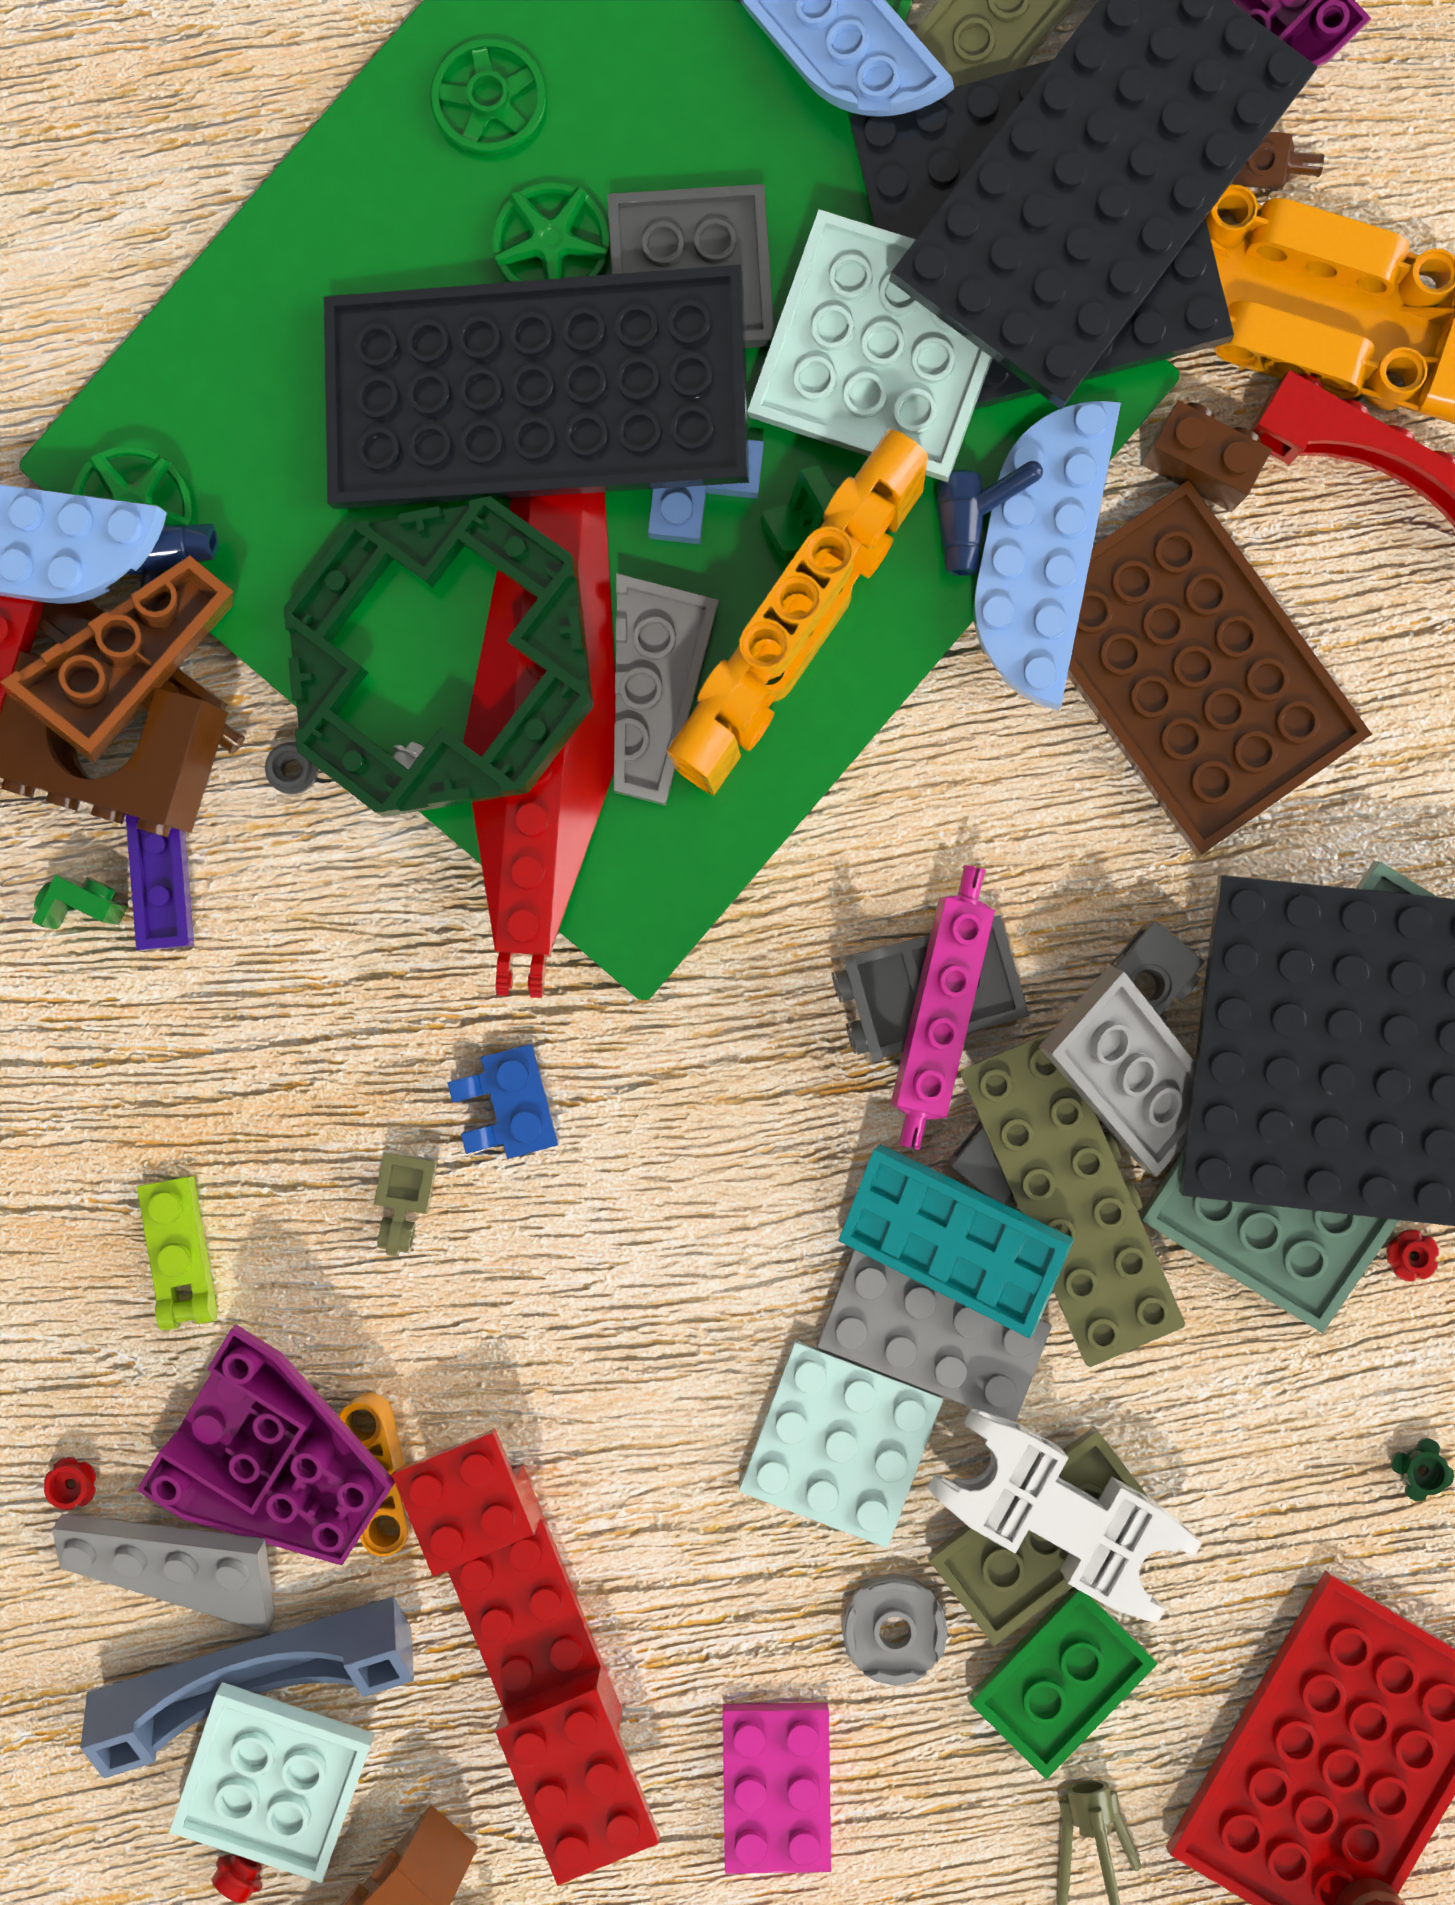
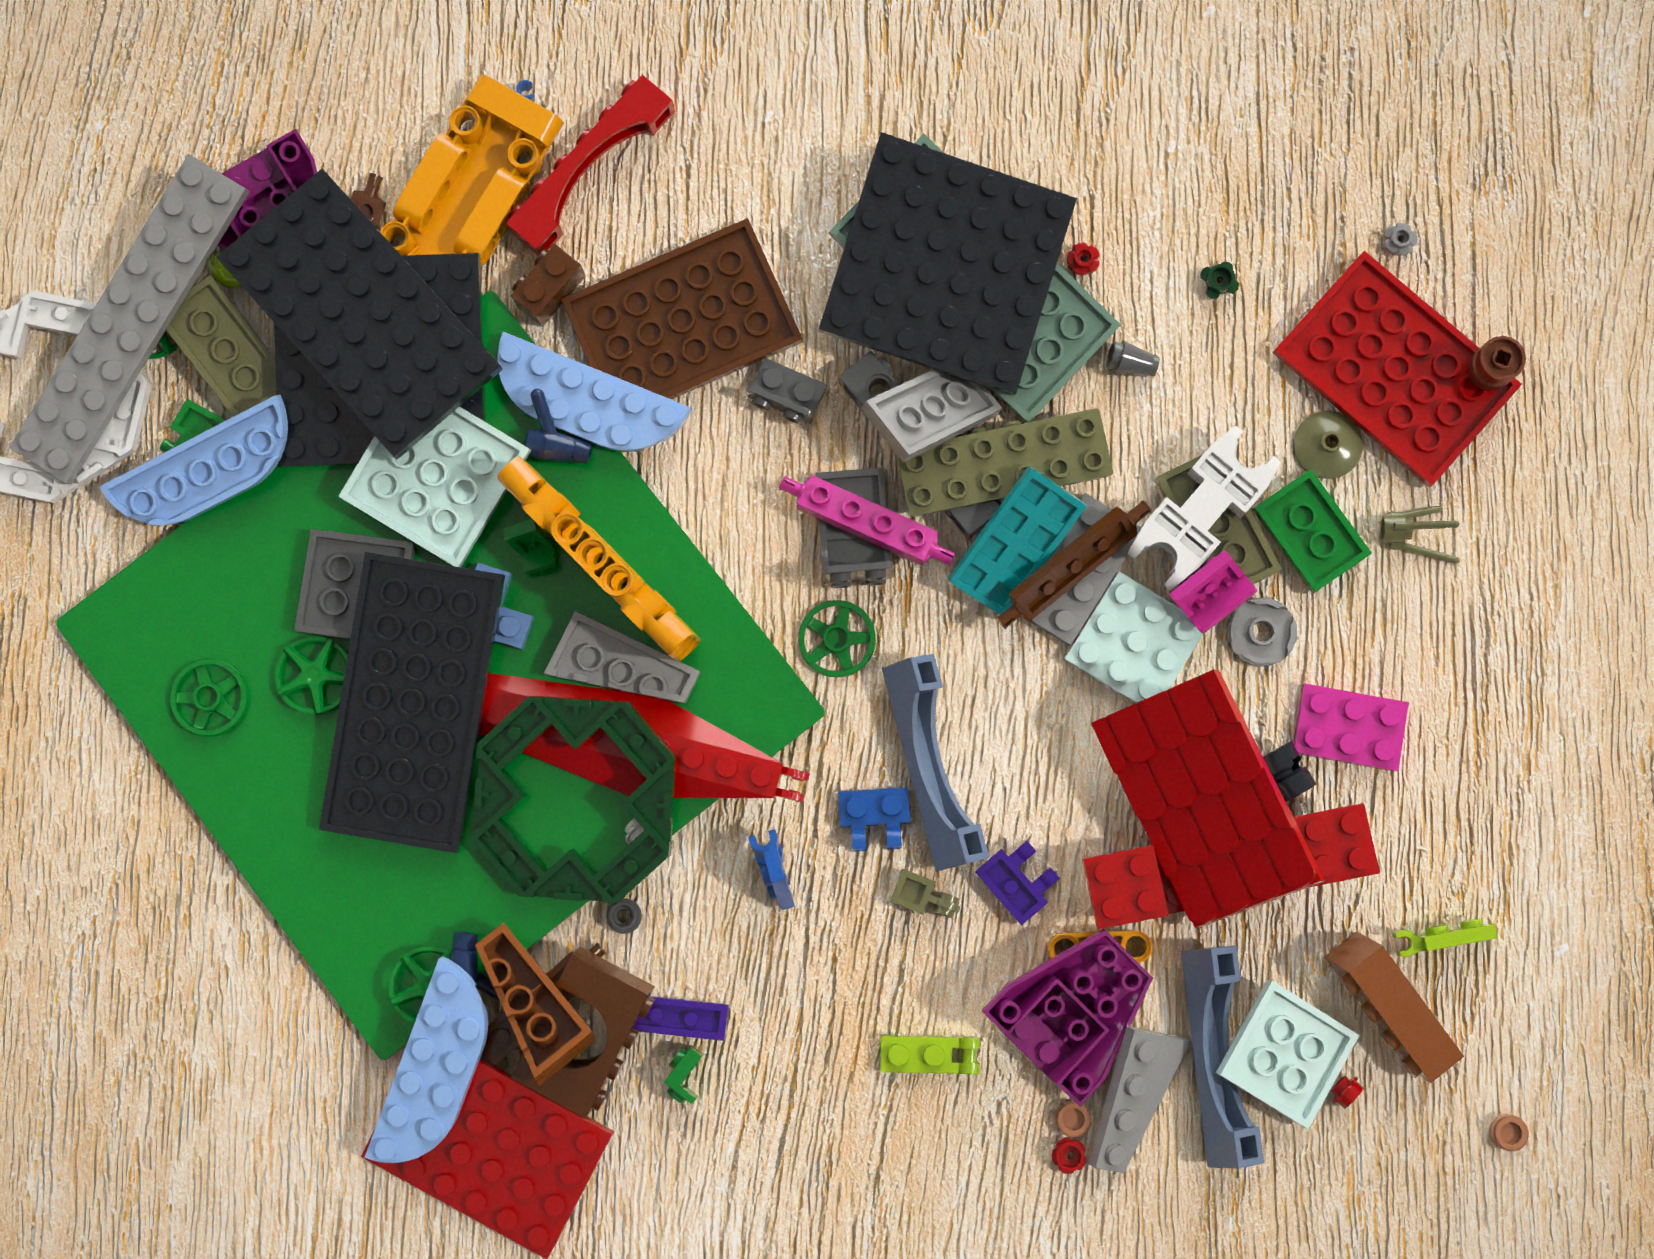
camera: 75 degrees left, 5 degrees down
(121, 1477) = (1073, 1119): none -> nougat tile
(388, 975) = (770, 860): none -> blue plate
(441, 1327) = (1012, 886): none -> dark purple plate
(501, 1221) = (913, 697): none -> sand blue arch
(614, 1610) = (1207, 800): none -> red piece
(689, 1701) = (1287, 773): none -> black wheel
(759, 996) = (837, 639): none -> green wheel
(936, 1554) = (1213, 592): none -> dark pink bracket
(938, 1332) = (1073, 563): none -> reddish brown plate
(1115, 847) = (786, 391): none -> dark grey bracket
(1187, 1658) = (1316, 455): none -> olive dish
(1270, 1358) = (1131, 360): none -> dark grey cone

